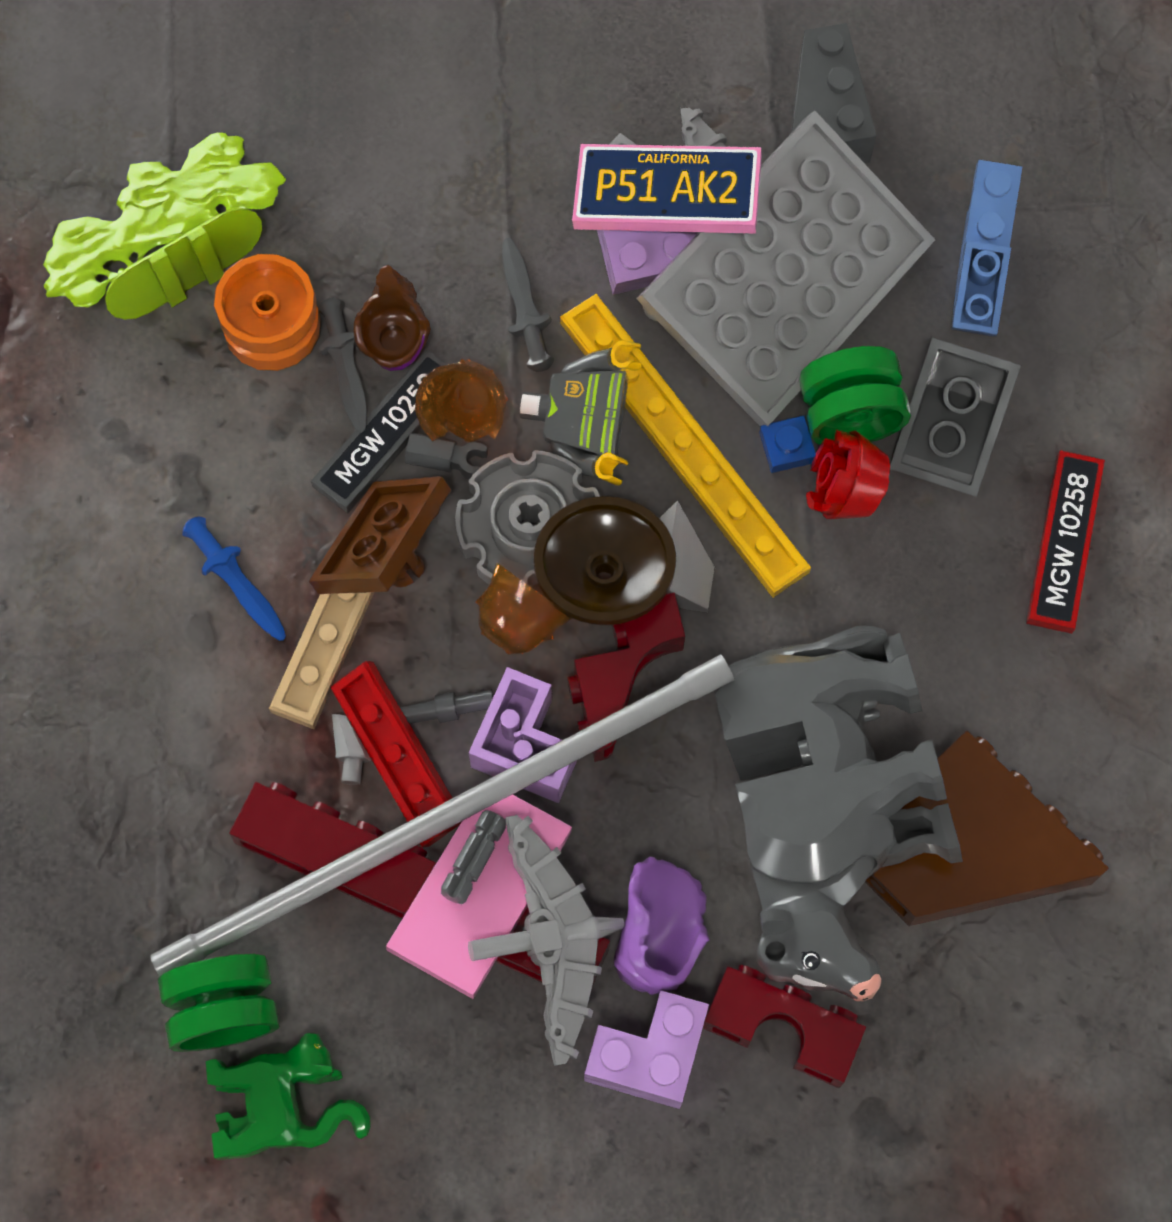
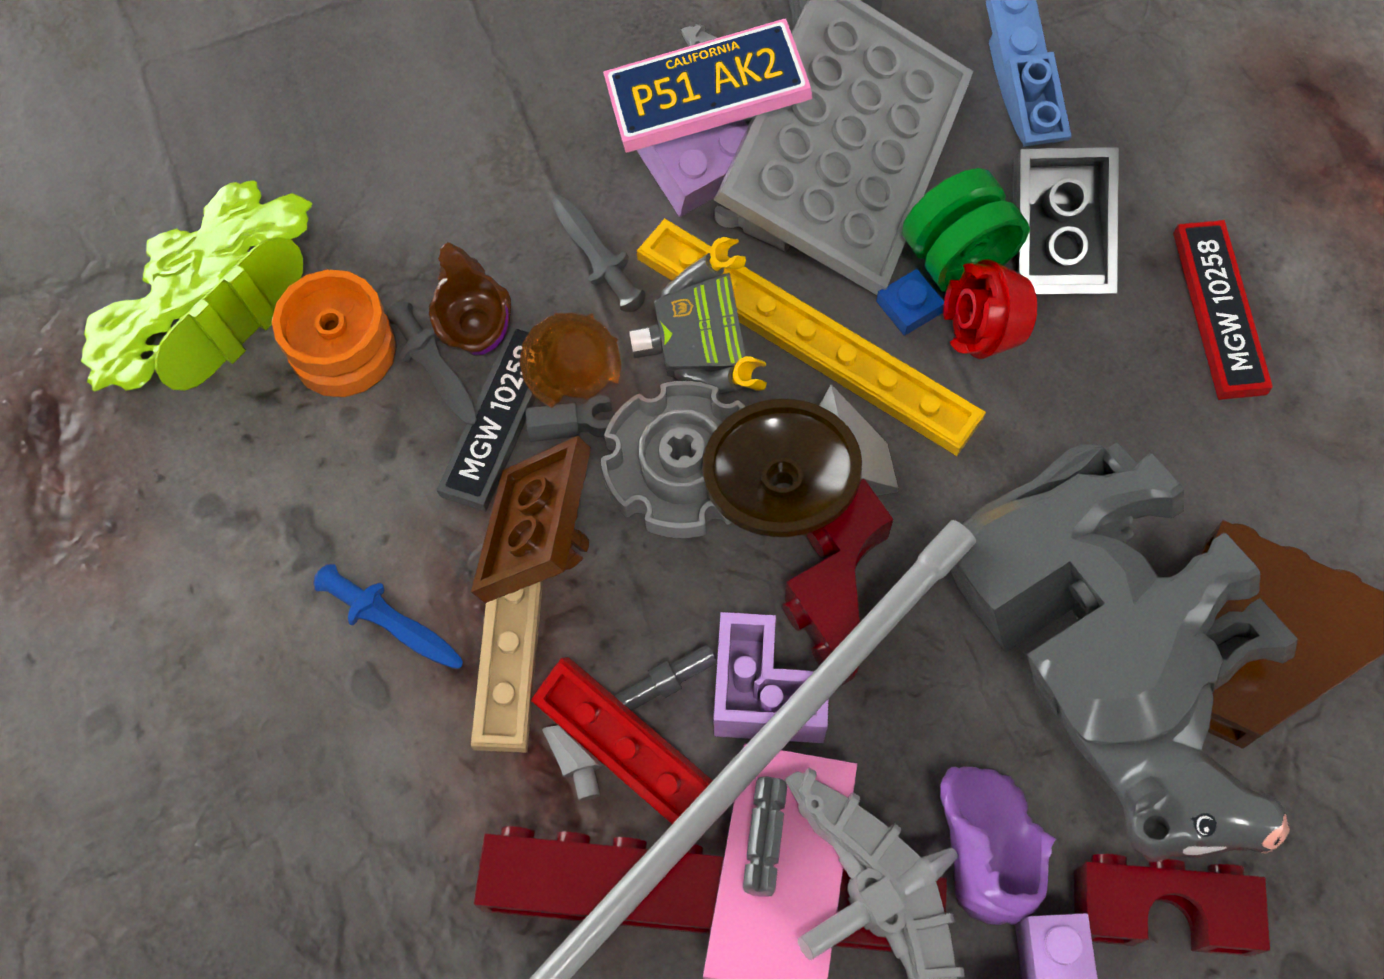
camera: 15 degrees left, 5 degrees down
(516, 614) = (707, 552): clear orange helmet -> none

